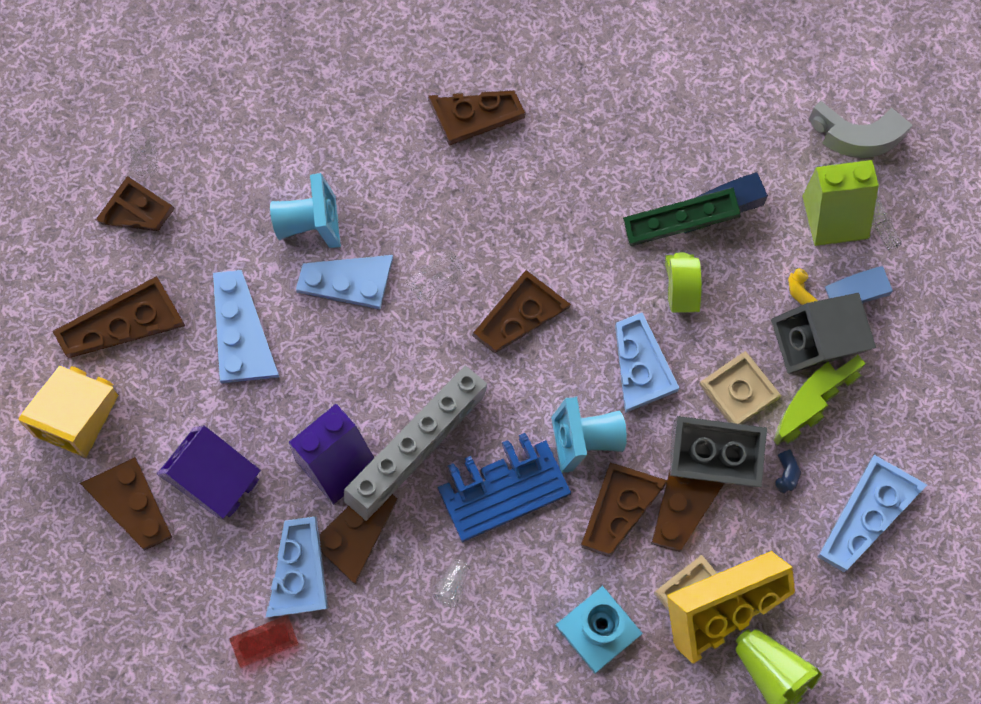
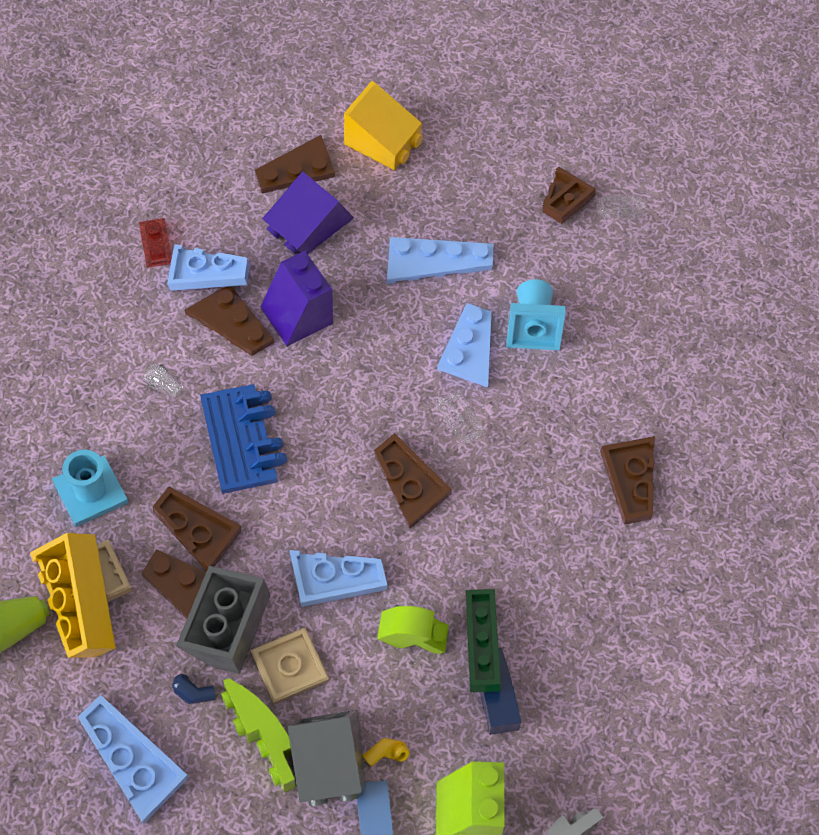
camera: 100 degrees right, 10 degrees down
(126, 318) = (461, 179): reddish brown wing -> none
(414, 443) = (295, 366): light grey brick -> none
(578, 435) = (270, 498): medium azure plant -> none

